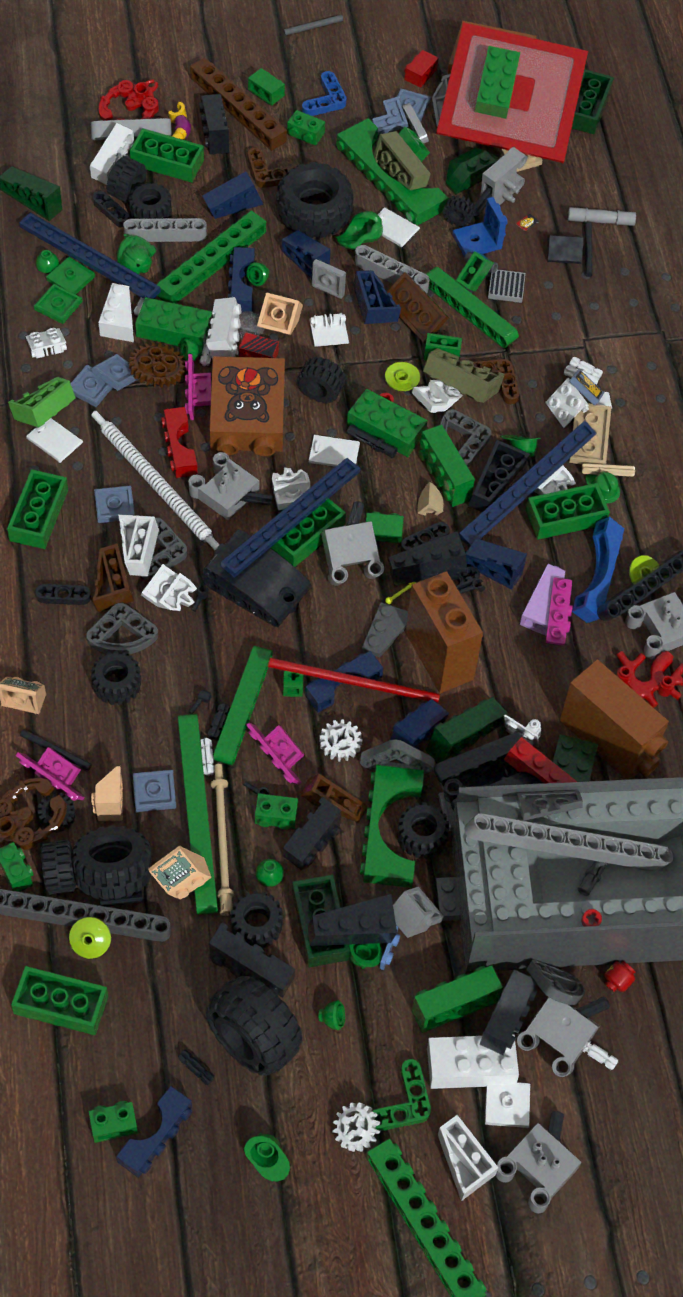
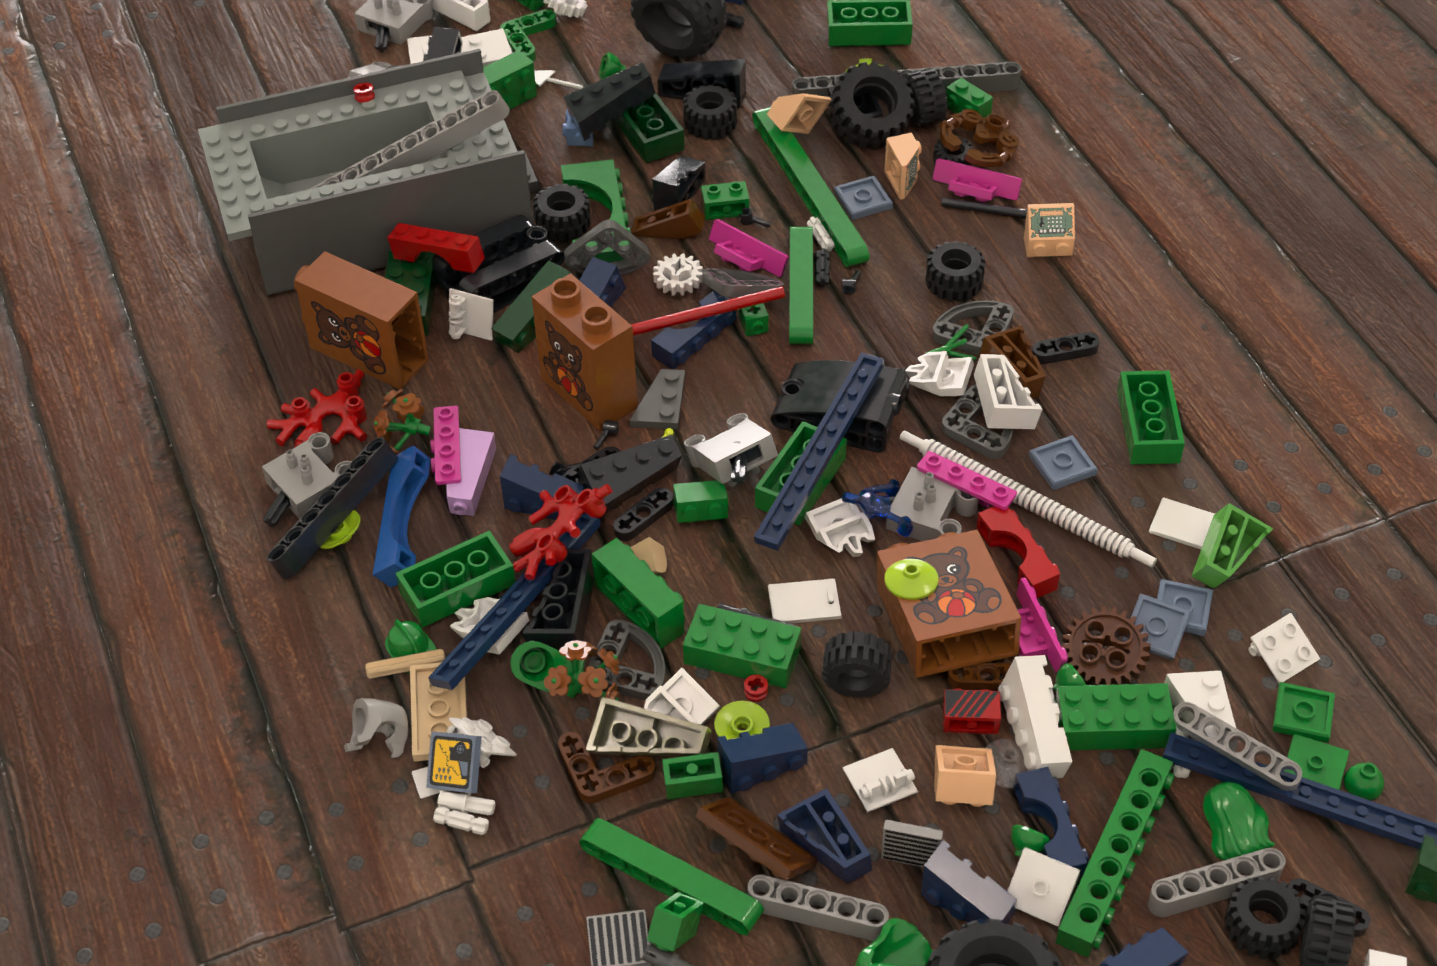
camera: 170 degrees right, 10 degrees down
(119, 270) = (1244, 758): none -> light grey beam
(153, 612) = (953, 344): none -> green plant
(193, 489) = (968, 481): none -> dark pink bracket
(225, 893) = (750, 131): tan bar -> none
(263, 246) = (1043, 886): none -> white plate
(265, 484) = (879, 506): none -> clear blue piece
(269, 872) = (714, 157): green brick -> none
(272, 409) = (911, 579): none -> lime dish
(299, 693) = (737, 282): none -> dark grey beam
(403, 1034) = (543, 76): none -> white piece
(404, 347) = (760, 756): none -> dark blue wedge
(415, 912) = (550, 141): light grey plate -> none
(497, 418) = (587, 681): none -> dark orange plant
(497, 497) = (545, 541): none -> red plant
(542, 804) = (429, 156): dark grey wing -> none
(596, 628) = (408, 410): none -> dark orange plant
(629, 424) = (378, 716): none -> light grey piece

